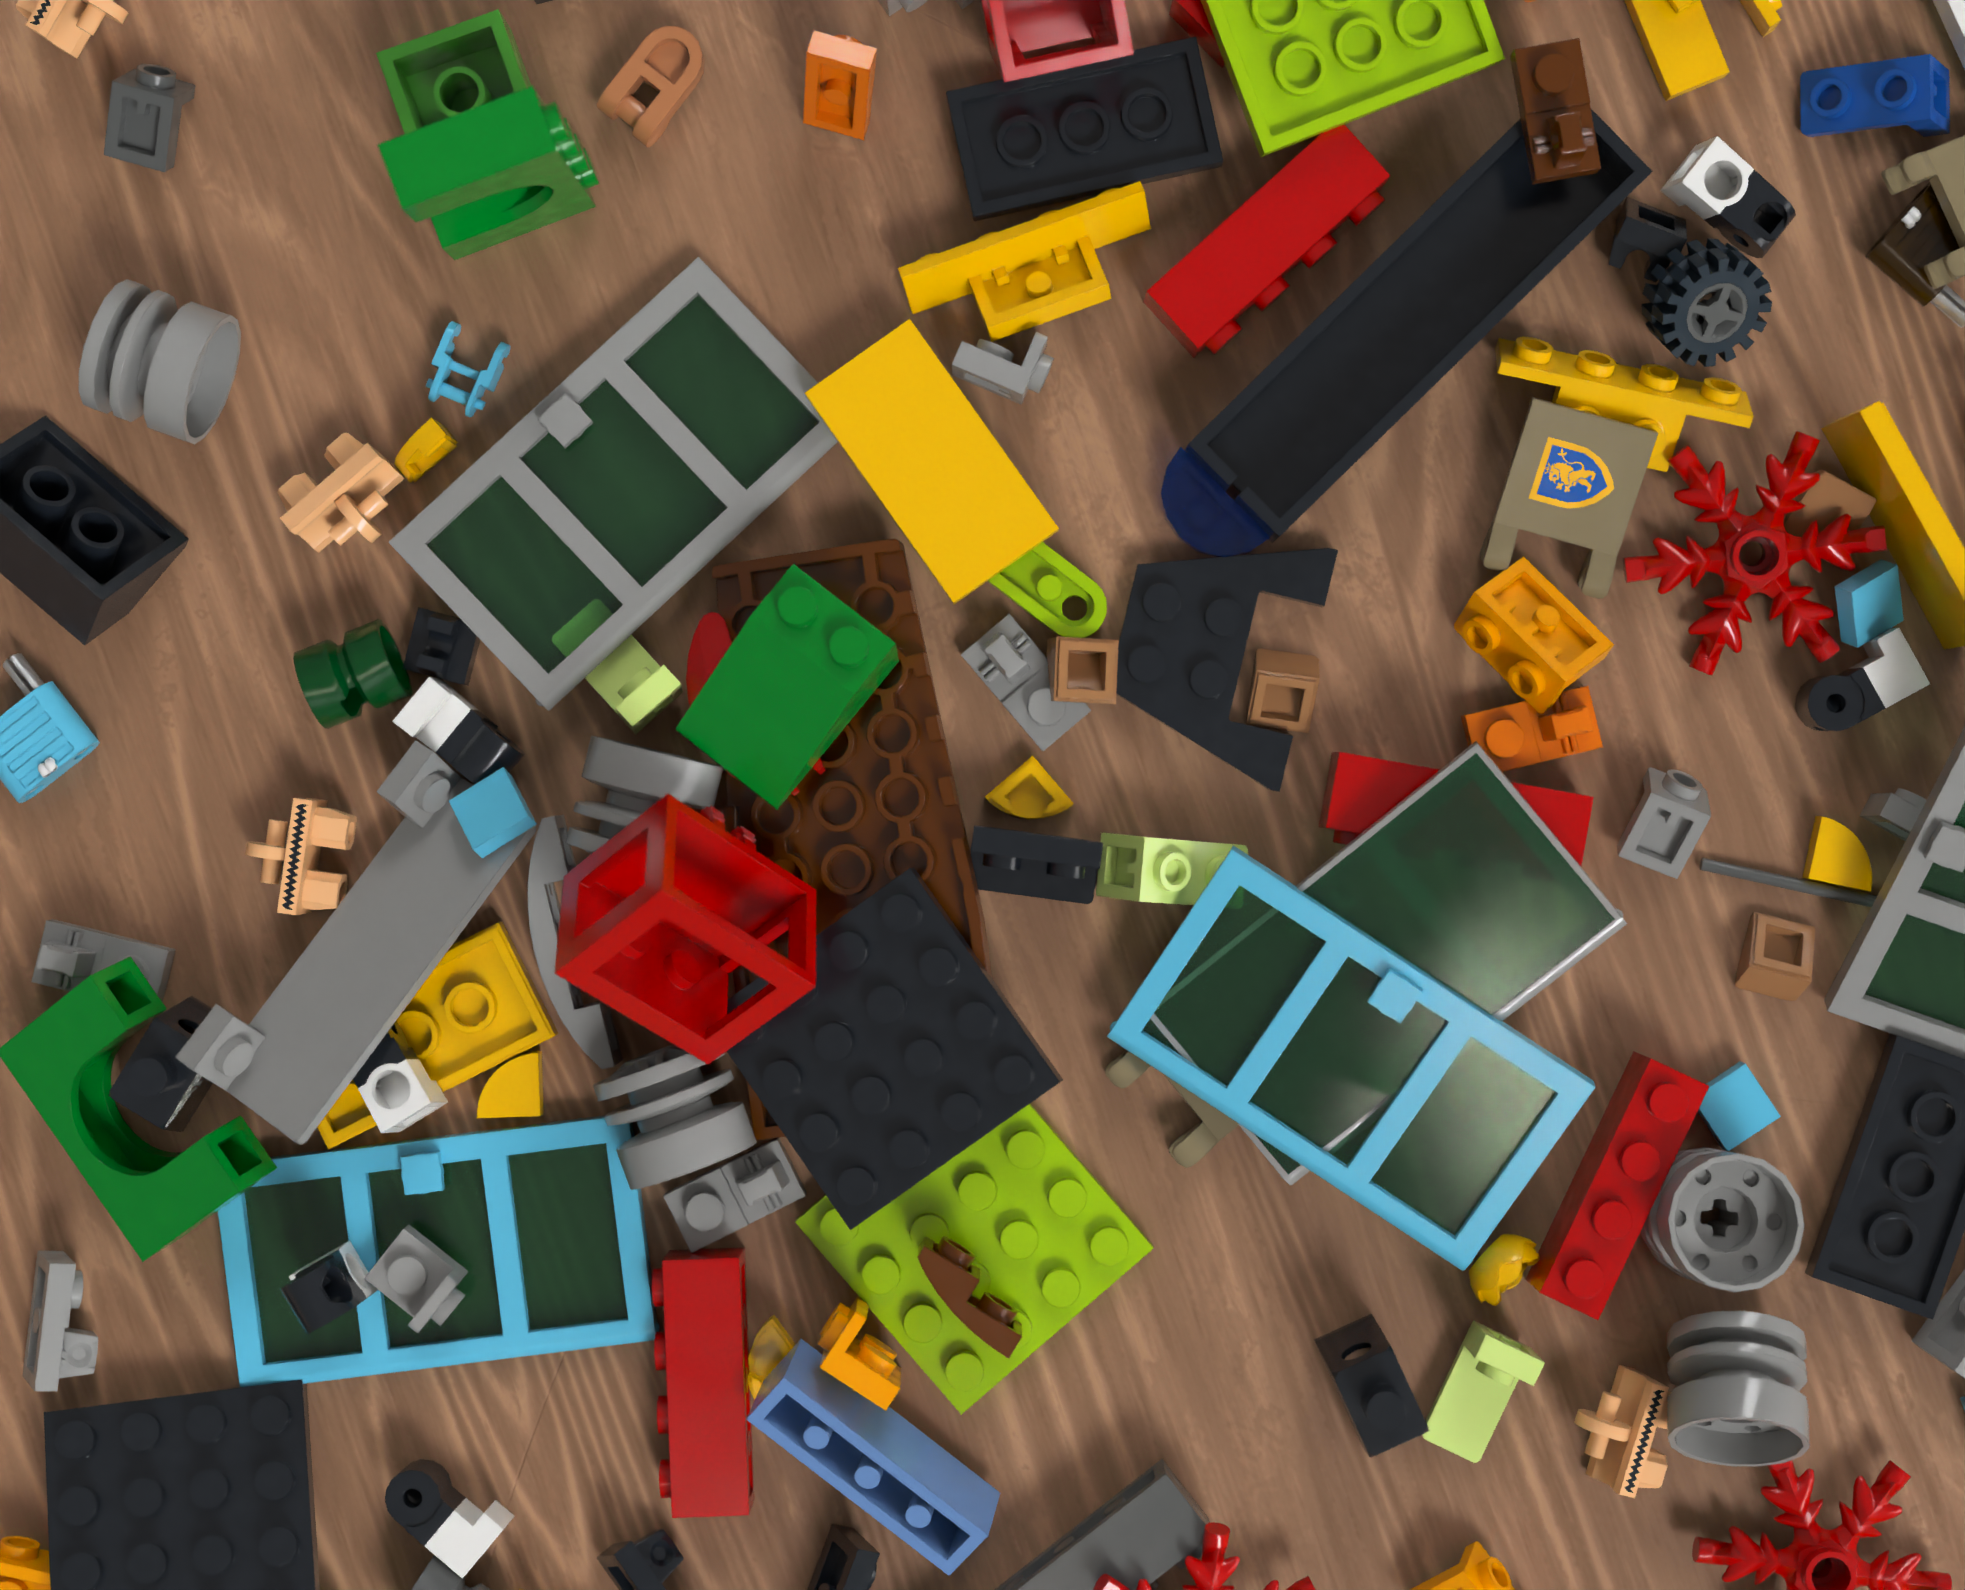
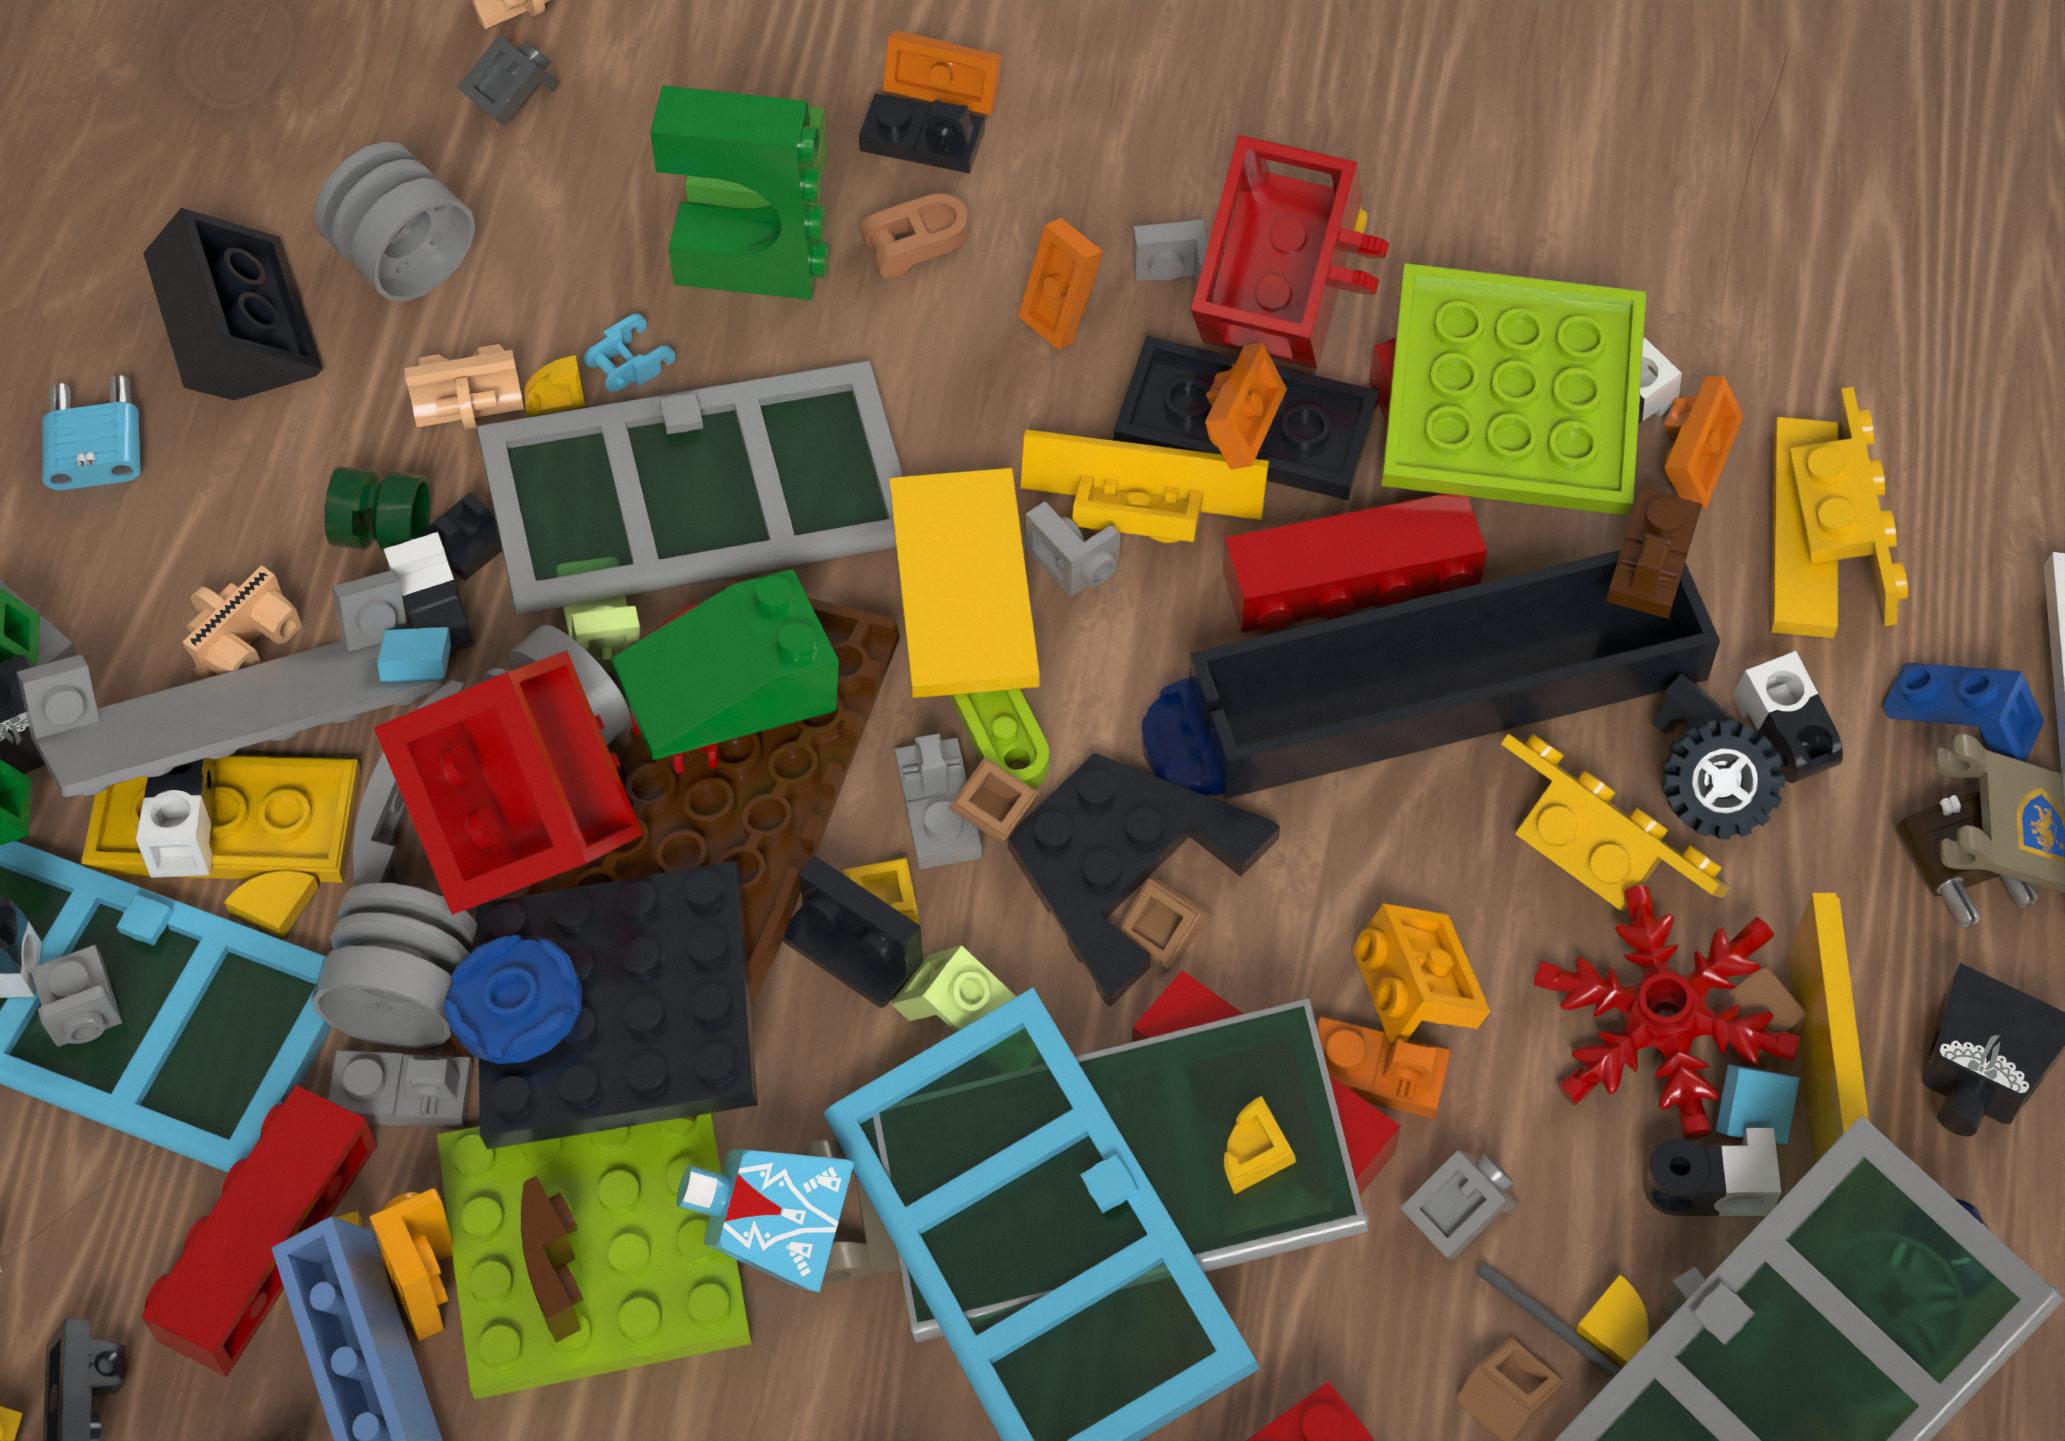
camera: 30 degrees right, 30 degrees down
(804, 1103) = (513, 999): none -> blue tile
(1090, 126) = (1244, 405): none -> orange hinge
(1124, 1153) = (771, 1211): none -> medium azure torso
(1501, 904) = (1255, 1147): none -> yellow tile
(1572, 483) = (1524, 866): dark tan flag -> none

